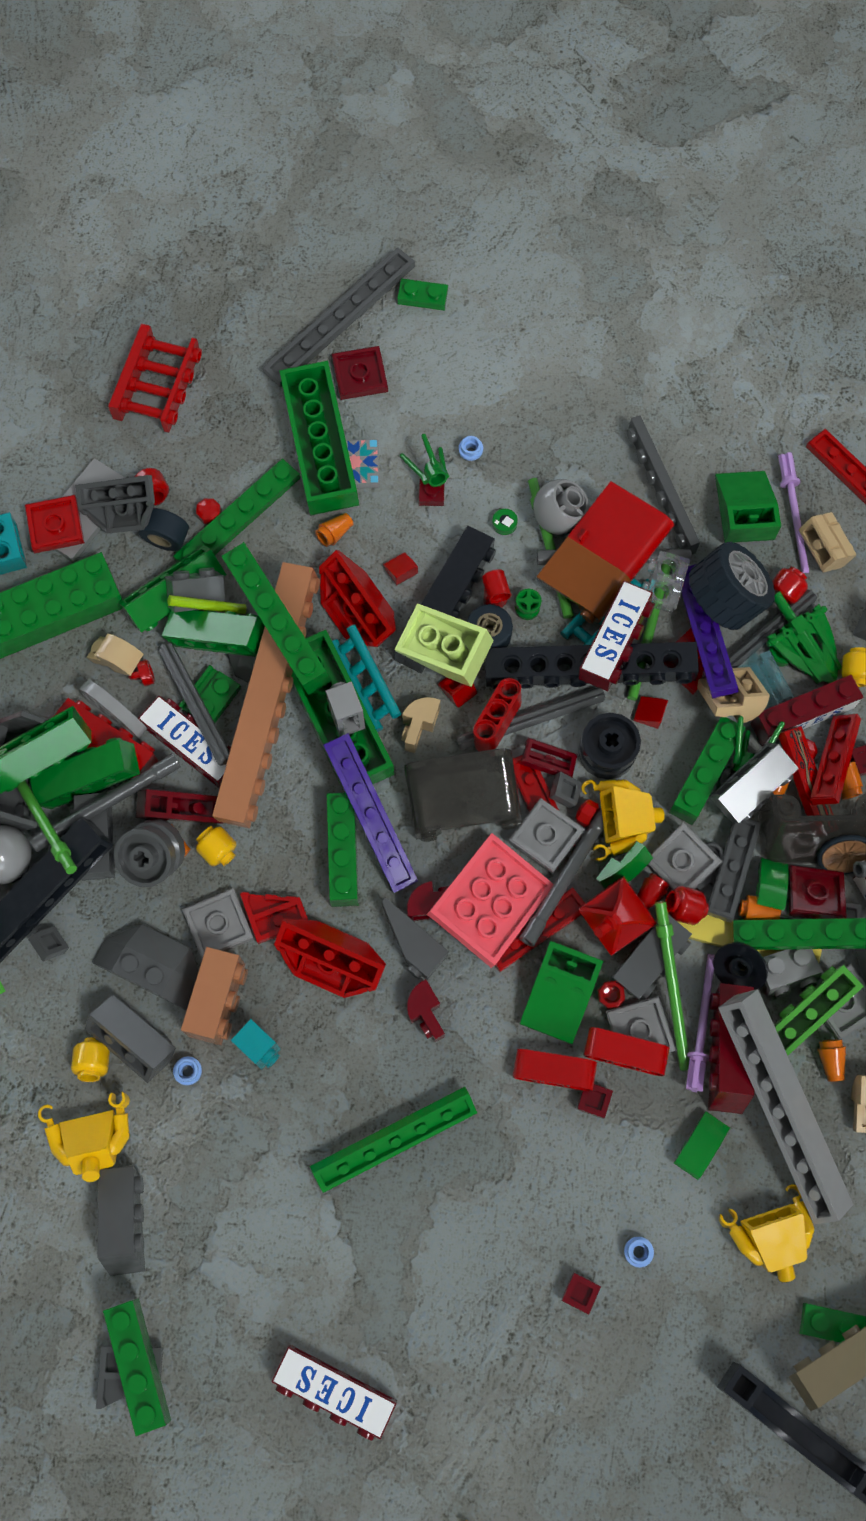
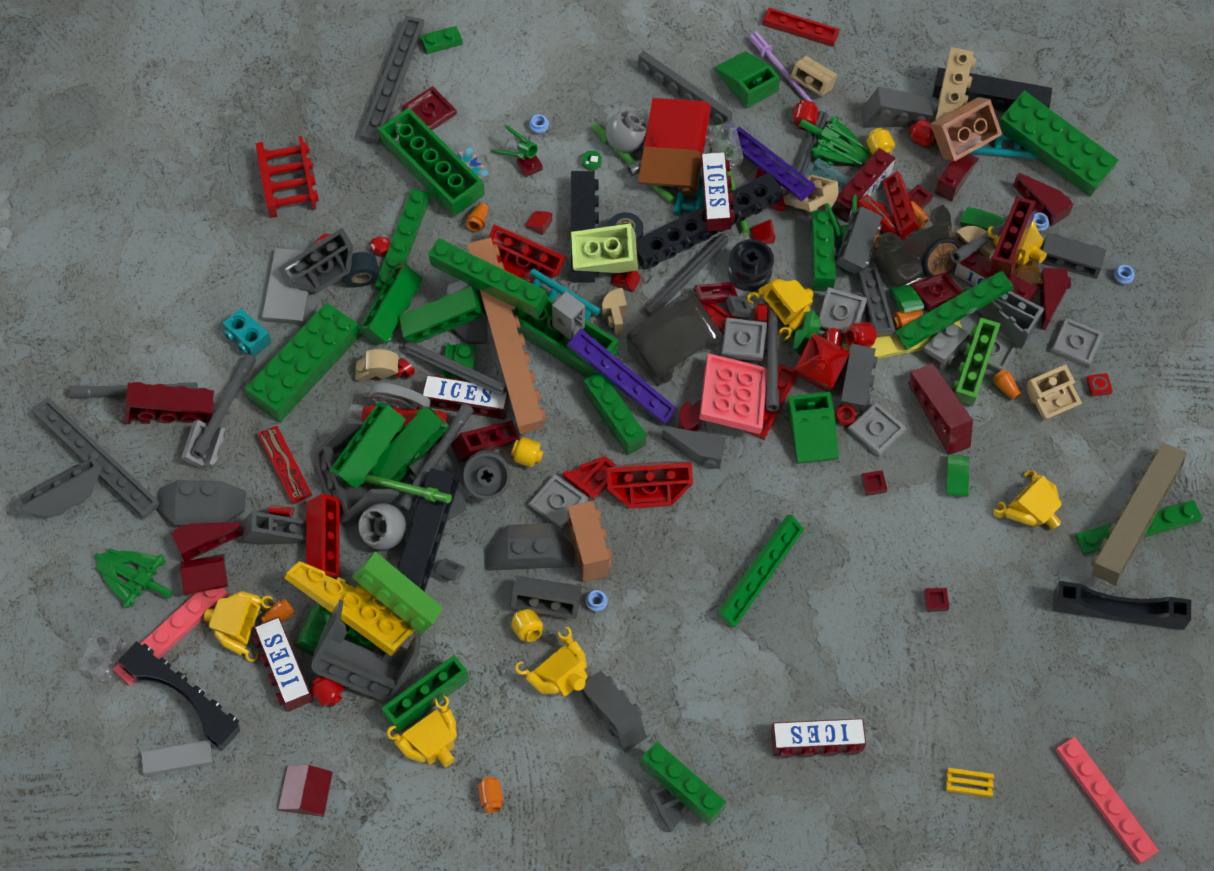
camera: 30 degrees left, 10 degrees down
(54, 524) = (276, 302): red tile -> none
(203, 585) = (411, 295): dark grey piece -> none
(204, 604) = (423, 300): lime bar -> none
(257, 1045) = (636, 556): teal brick -> none
(421, 1005) = (729, 483): dark red brick -> none
(496, 588) = (616, 200): red piece -> none
(497, 704) = (666, 277): red beam -> none
(529, 598) = (643, 200): green wheel -> none
(555, 1069) = (838, 475): red beam -> none
(626, 1051) = (877, 441): red beam -> none
(647, 1255) = (957, 552): light blue plate -> none
(664, 931) = (858, 353): bright green bar -> none
(698, 1059) = (923, 424): lavender piece -> none
(731, 586) = (771, 127): black wheel -> none
(731, 971) = (906, 359): black dish -> none
(786, 1107) = (996, 418): light grey brick -> none

